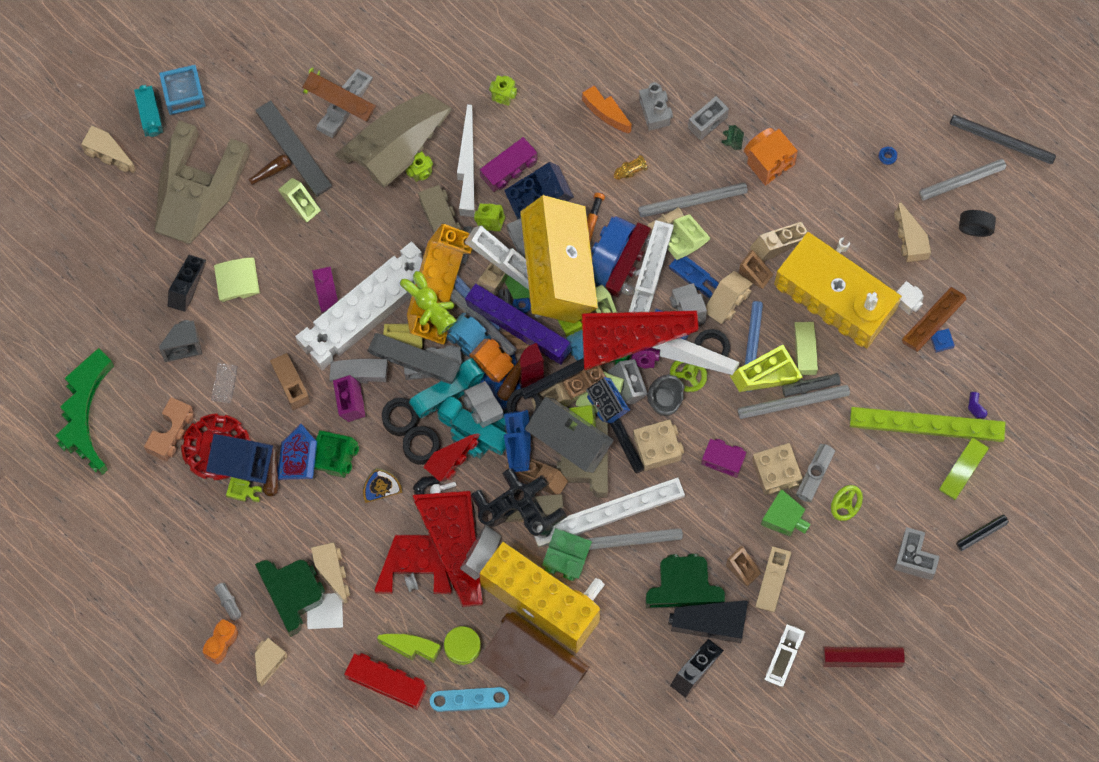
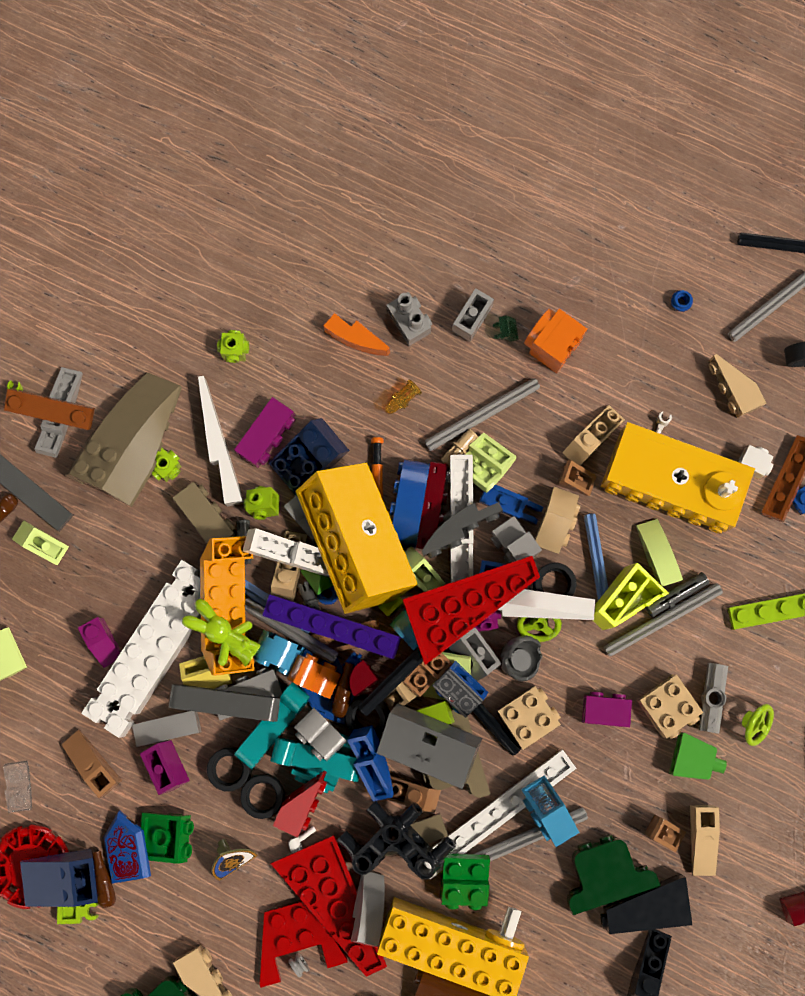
camera: 15 degrees left, 10 degrees up
(422, 483) = (277, 841): black arm -> none
(636, 278) = (451, 532): none -> dark grey slope
(651, 515) = (549, 811): none -> dark azure piece
(785, 655) = (743, 923): slope -> none

